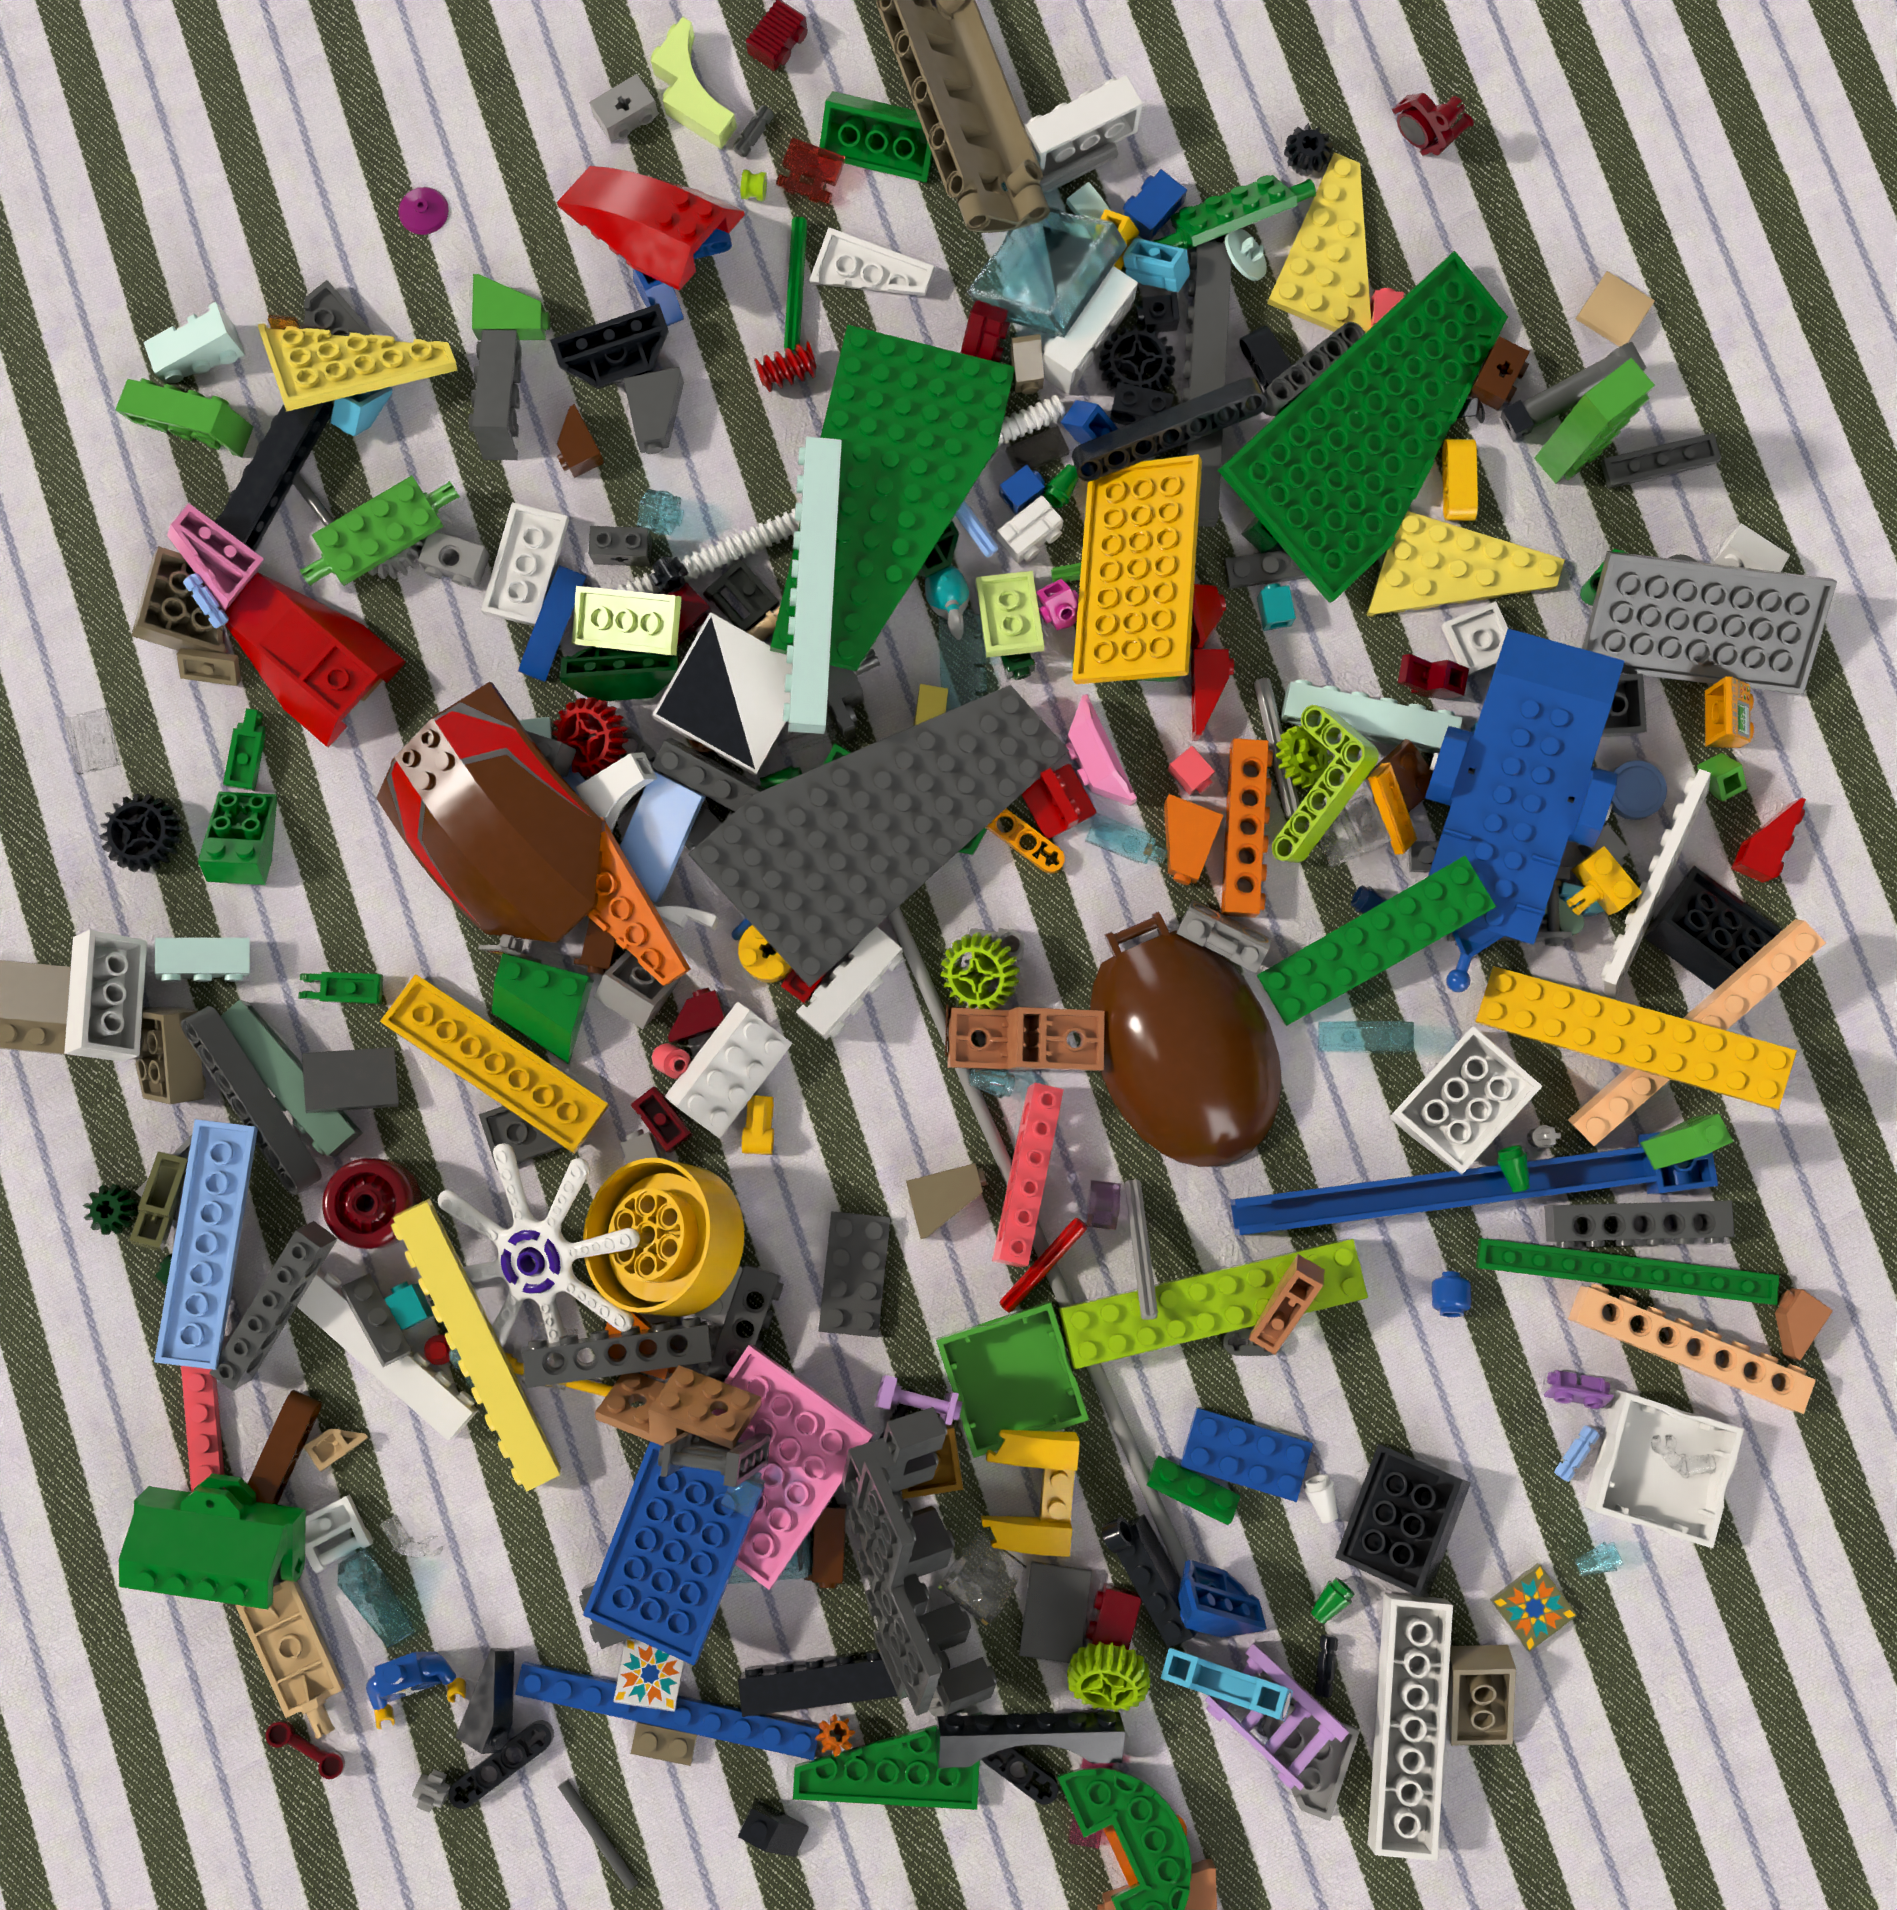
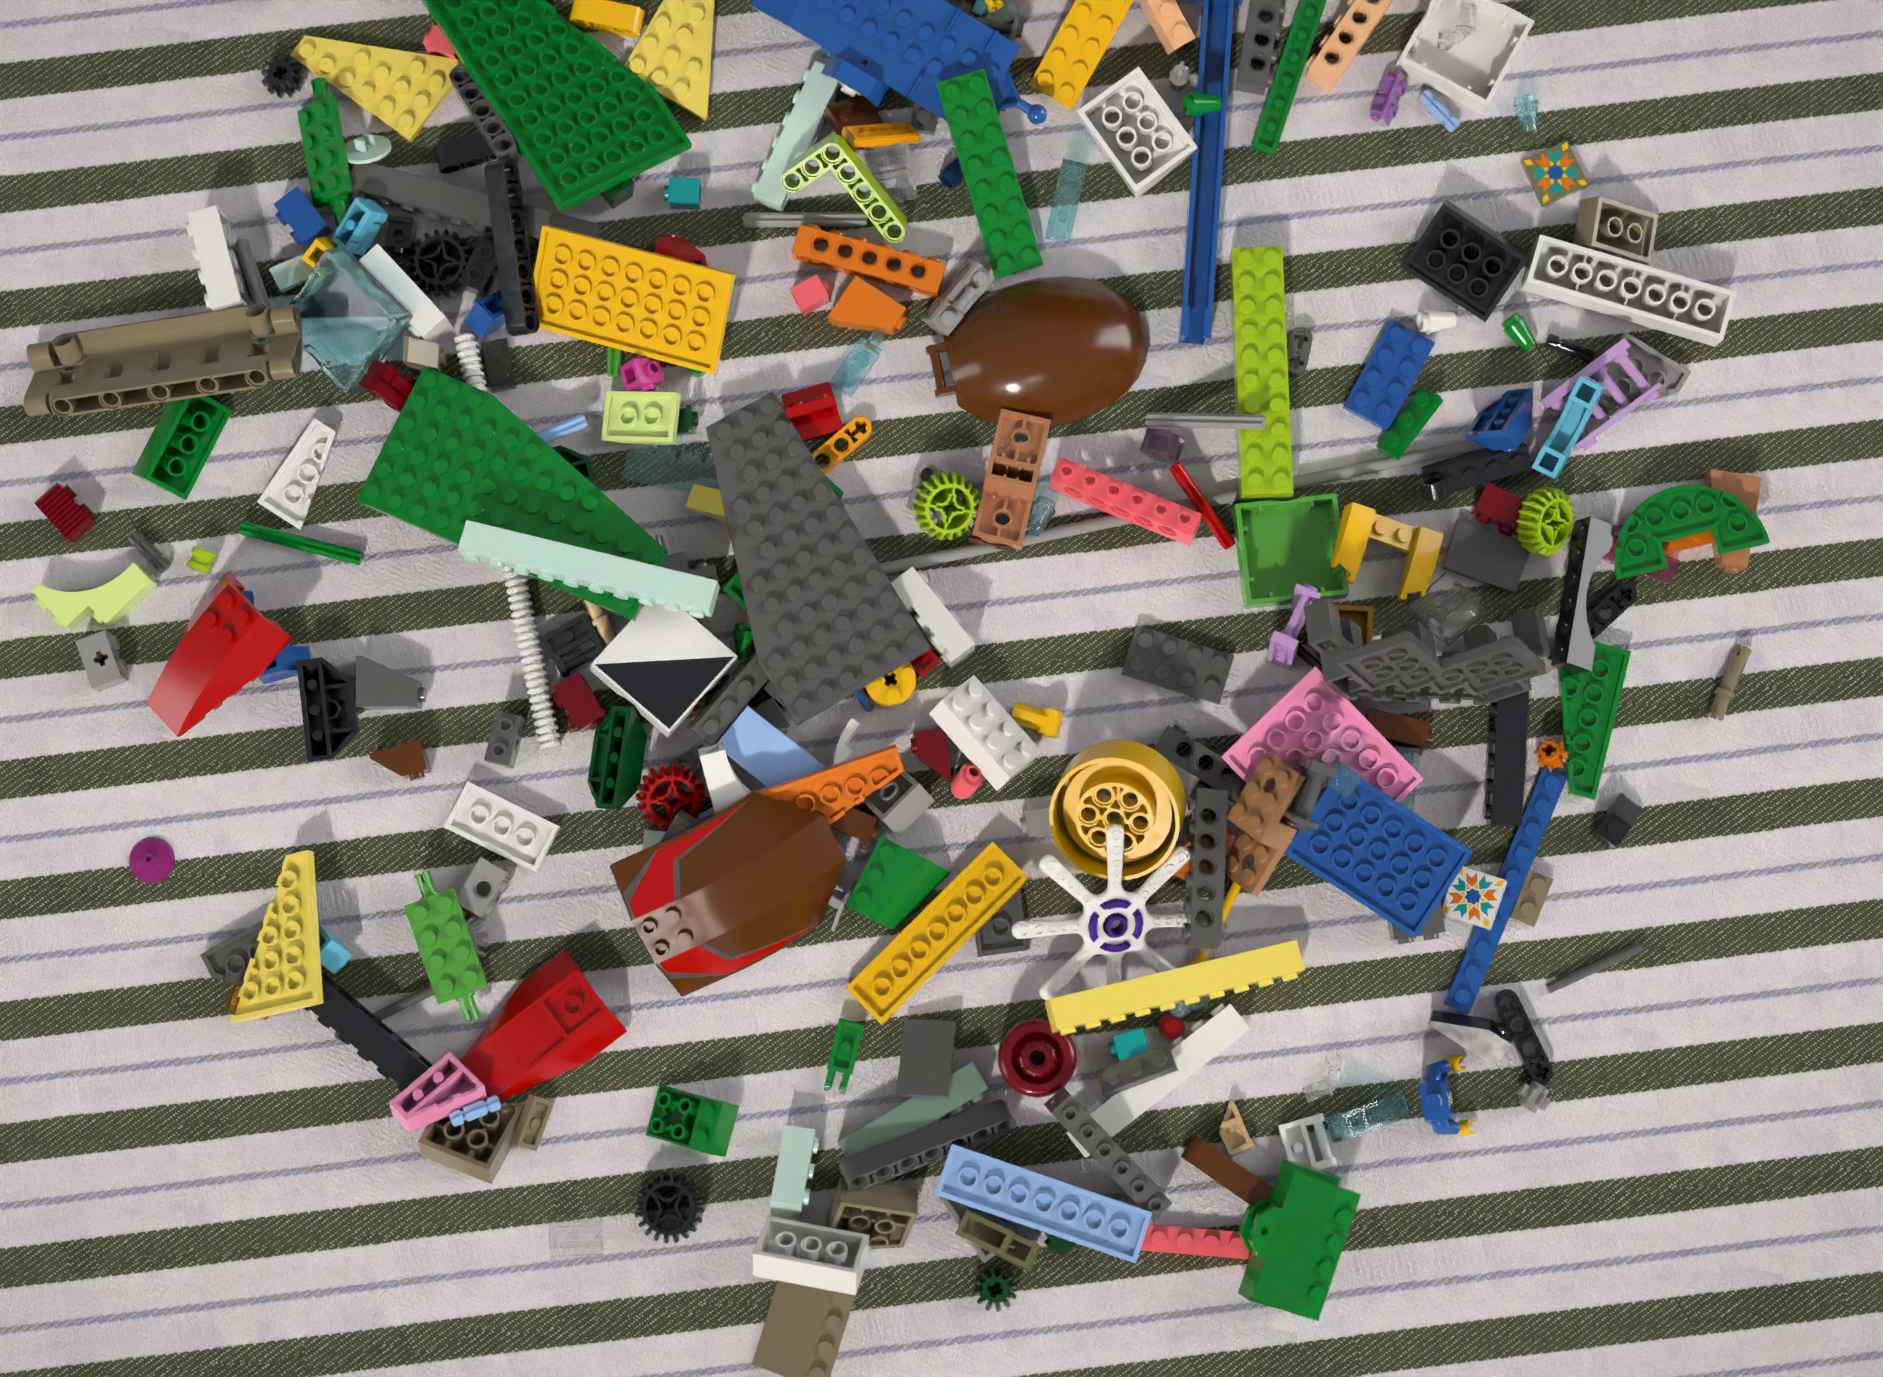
camera: 75 degrees left, 0 degrees up
(185, 415) = (296, 1104): bright green wedge -> none
(195, 346) = (236, 1084): light aqua wedge -> none
(245, 752) = (617, 1103): green hinge -> none
(283, 1733) = (1496, 1178): dark red bar -> none
(294, 1655) = (1403, 1194): tan plate -> none
(496, 394) = (342, 820): dark grey wedge -> none
(507, 309) = (268, 800): bright green slope -> none
(551, 624) = (560, 812): blue slope -> none
(626, 620) = (575, 744): yellowish green plate -> none
(660, 512) = (483, 698): clear light blue brick -> none
(662, 1119) = (1015, 798): dark red brick -> none
(669, 574) = (544, 698): black gear -> none
(786, 367) = (375, 564): red piece -> none
(814, 163) = (193, 503): clear red plate -> none
(943, 1195) = (1127, 576): dark tan slope -> none
(948, 597) = (615, 466): teal hair -> none
(1022, 489) = (532, 384): blue brick -> none
(1030, 530) = (569, 385): white brick -> none
(1061, 487) = (538, 351): green cone -> none
(1096, 756) = (780, 371): bright pink wedge -> none
(1208, 678) = (734, 259): red slope -> none
(1261, 569) = (647, 199): dark grey plate -> none
(1288, 1304) = (1275, 309): nougat slope -> none
(1302, 756) = (820, 199): lime gear -> none
(1433, 679) = (775, 76): dark red brick -> none
(1451, 1294) = (1292, 180): blue head -> none
(1477, 637) = (748, 33): white plate -> none

